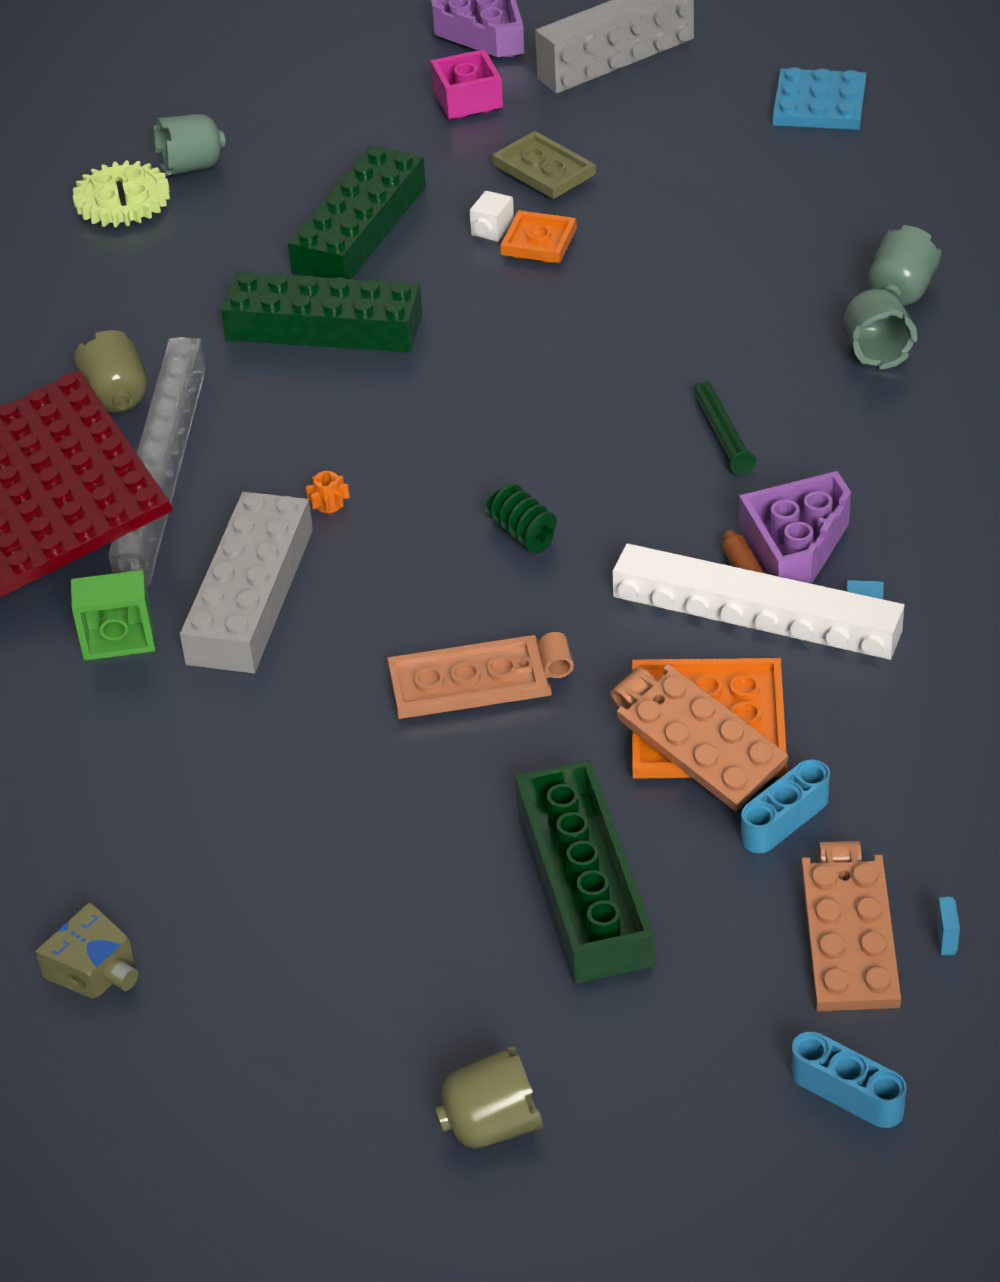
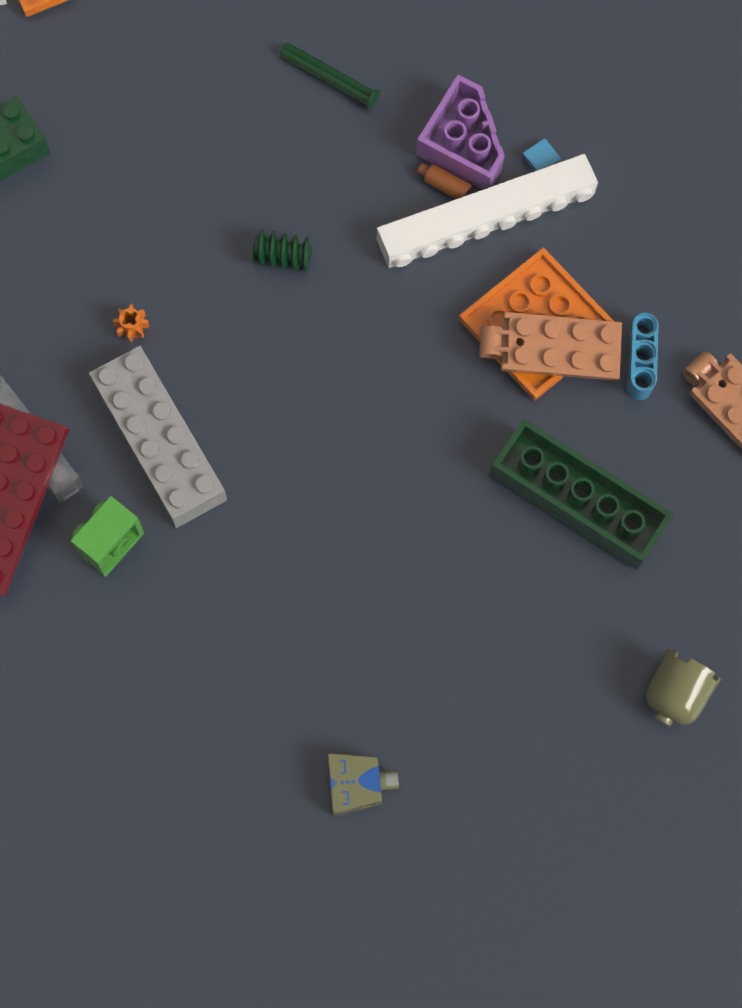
camera: 50 degrees left, 30 degrees up
(478, 674) = (373, 398): nougat hinge -> none

